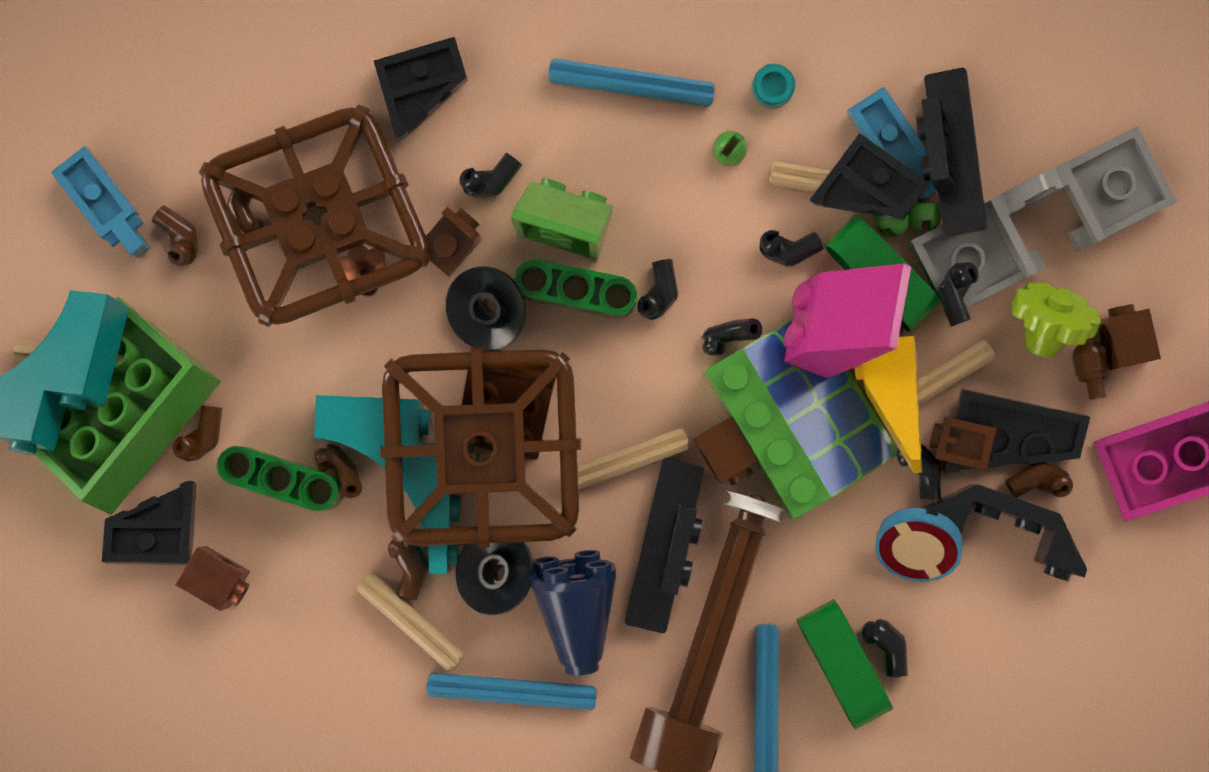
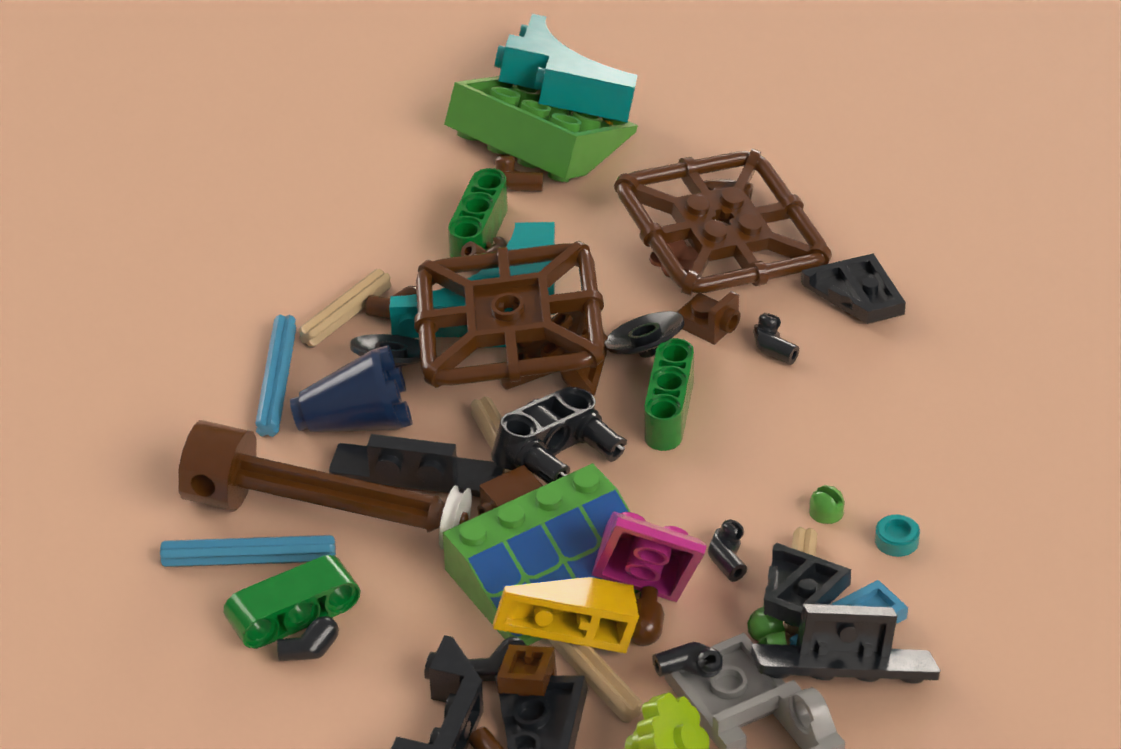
camera: 90 degrees right, 45 degrees down
(101, 201) = (719, 110): dark azure hinge -> none
(153, 532) = (430, 152): black wing -> none
(182, 235) = (710, 147): reddish brown arm -> none
(214, 579) = (387, 183): copper brick -> none
(562, 218) = (734, 361): bright green slope -> none
(631, 82) = (883, 432): dark azure axle -> none
(638, 416) = (547, 427): none -> black piece
(662, 294) = (673, 462): black arm -> none
(731, 331) = (634, 501): black arm -> none
(860, 246) = (708, 611): green beam -> none
(918, 545) = (416, 643): tile -> none

